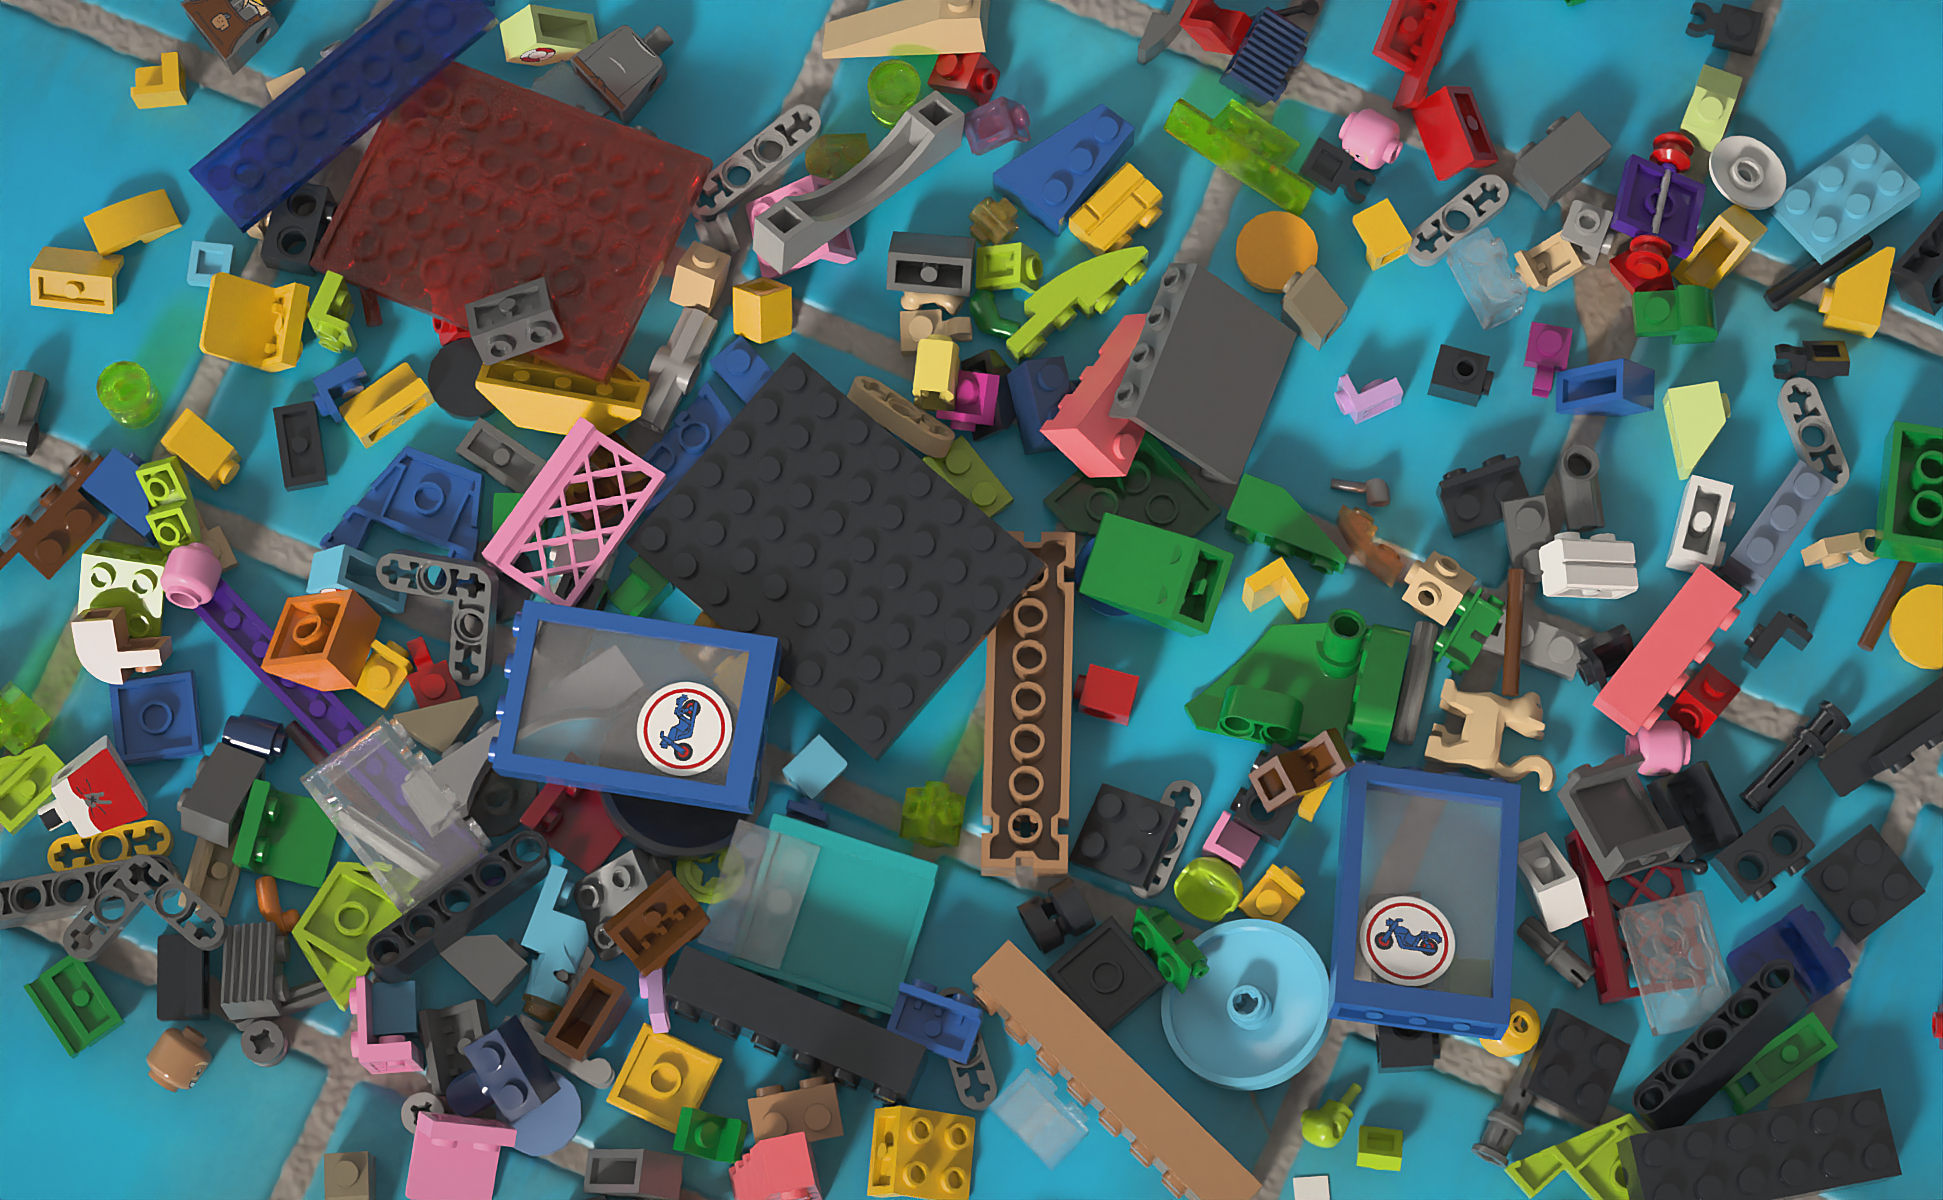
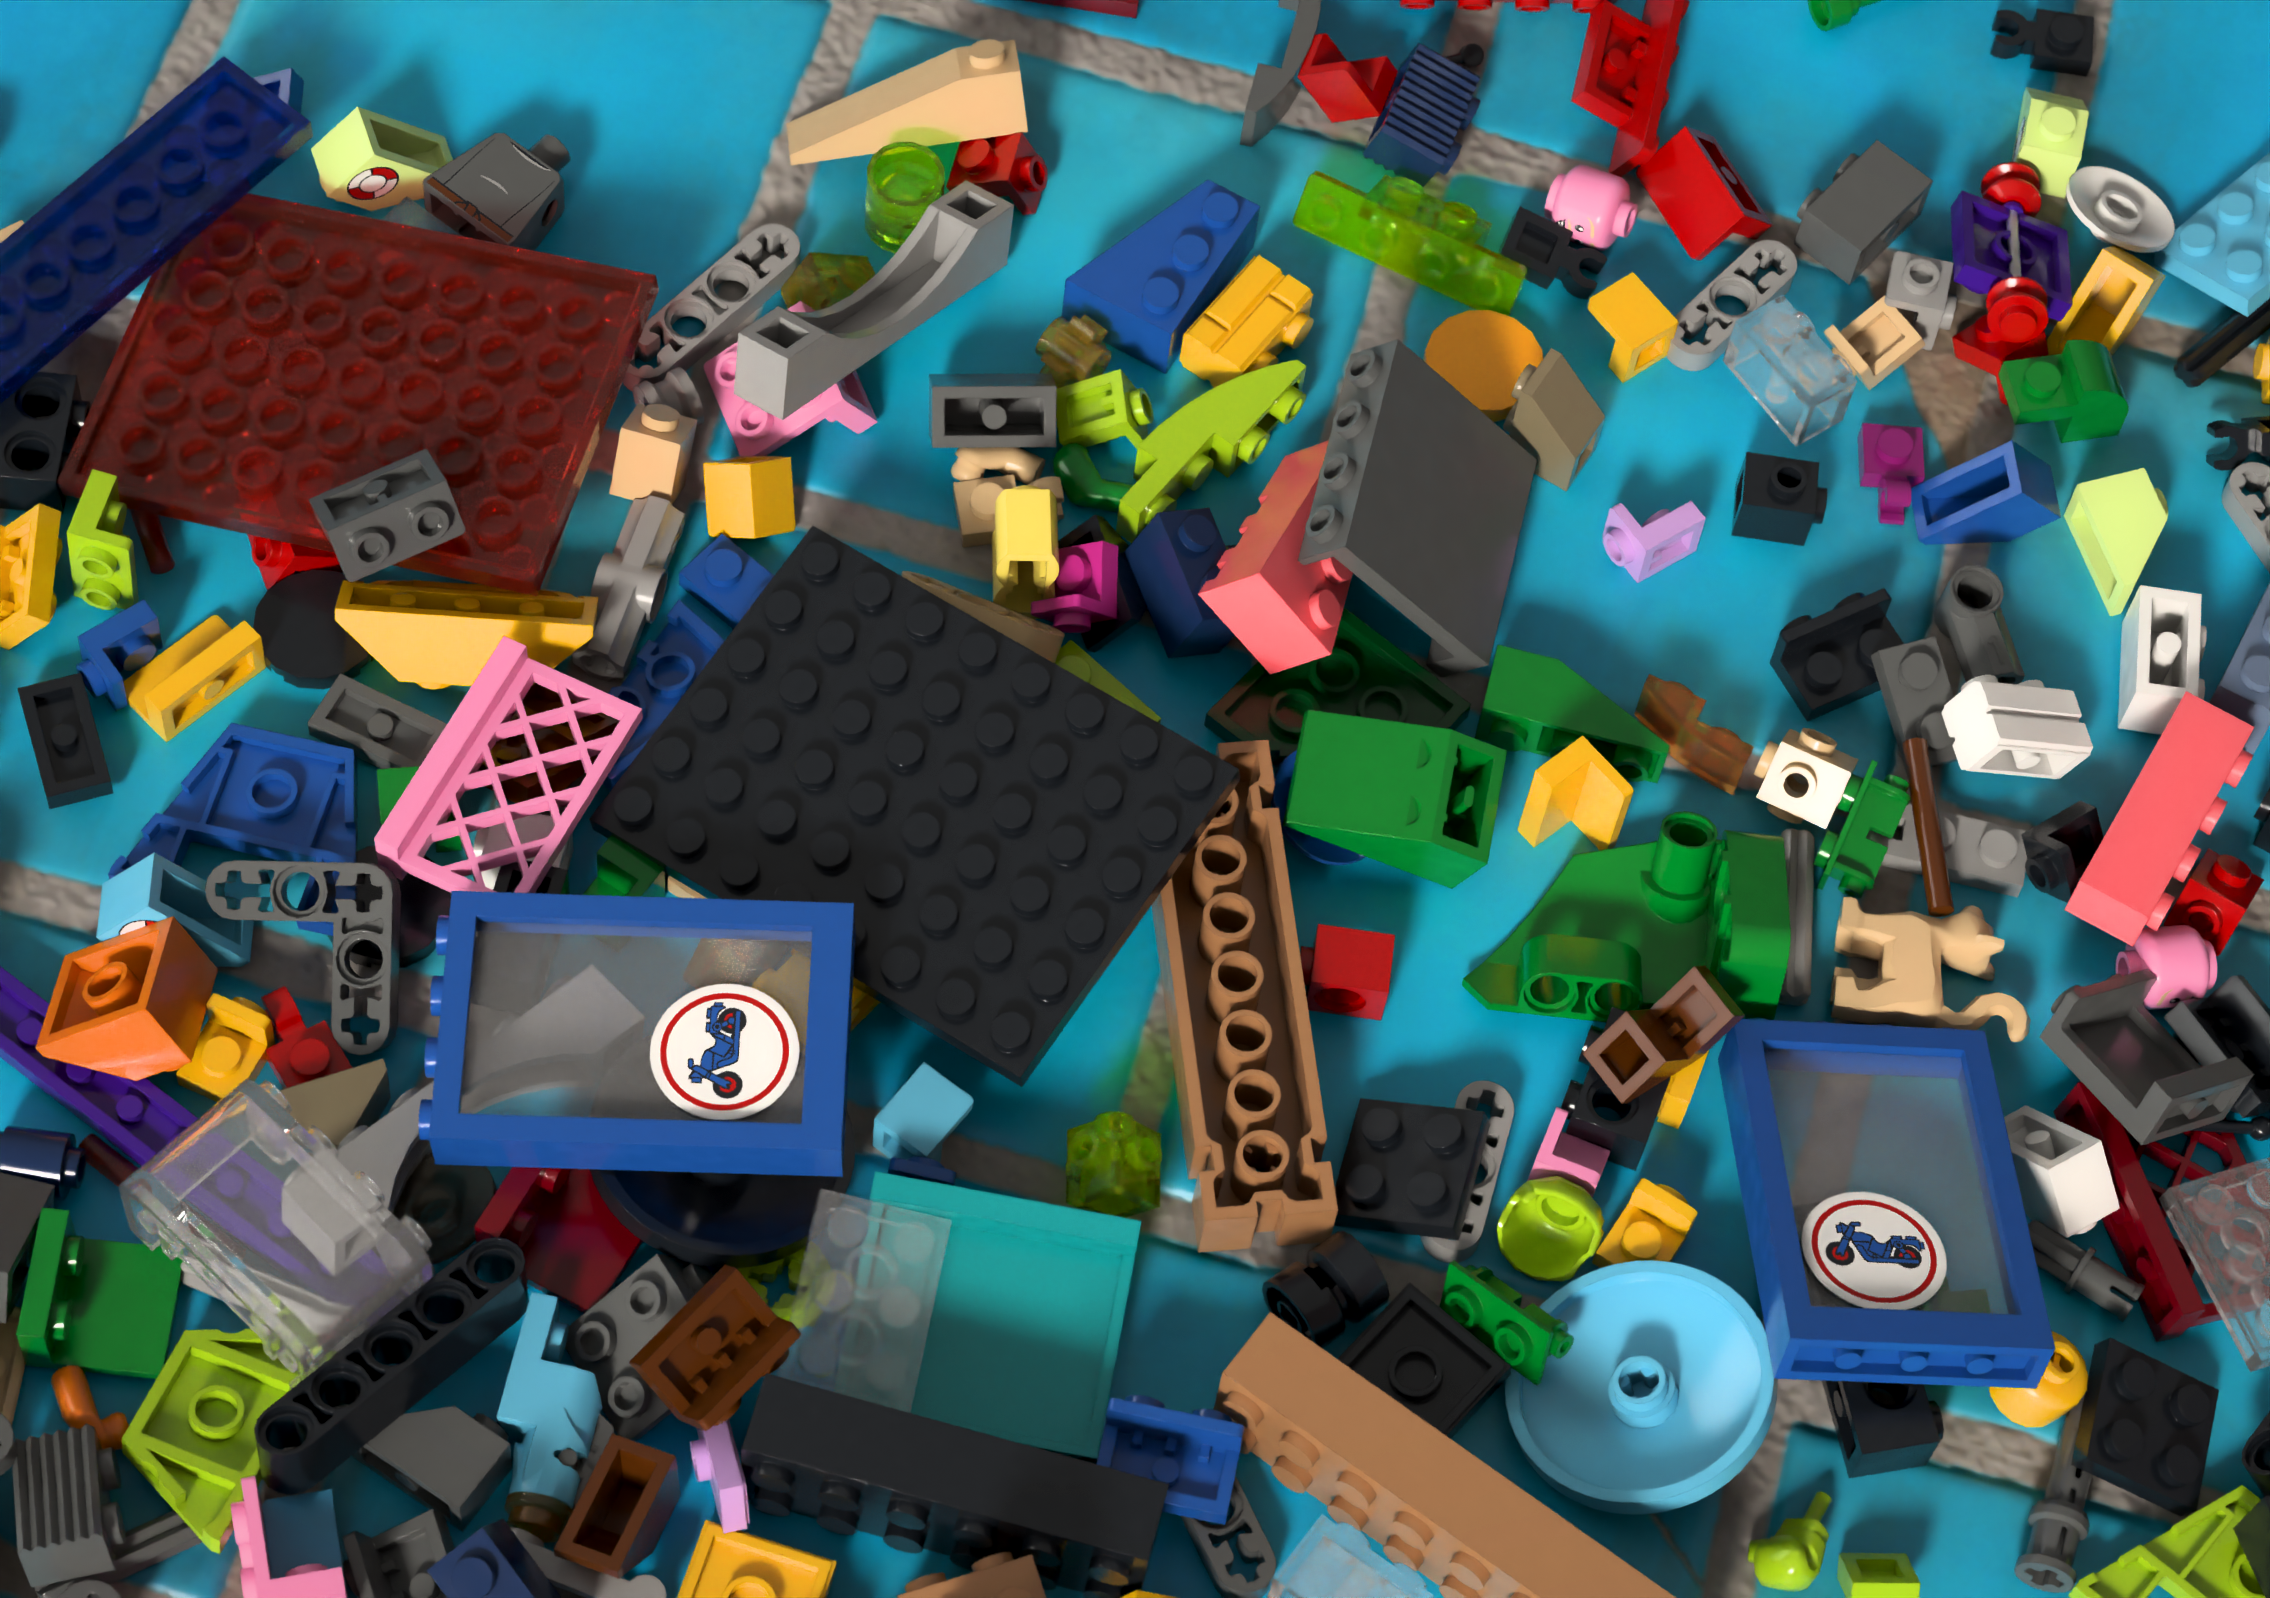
camera: 20 degrees left, 15 degrees down
(996, 125) = (1054, 230): clear pink bracket -> none
(1375, 489) = (1685, 660): dark grey hand -> none

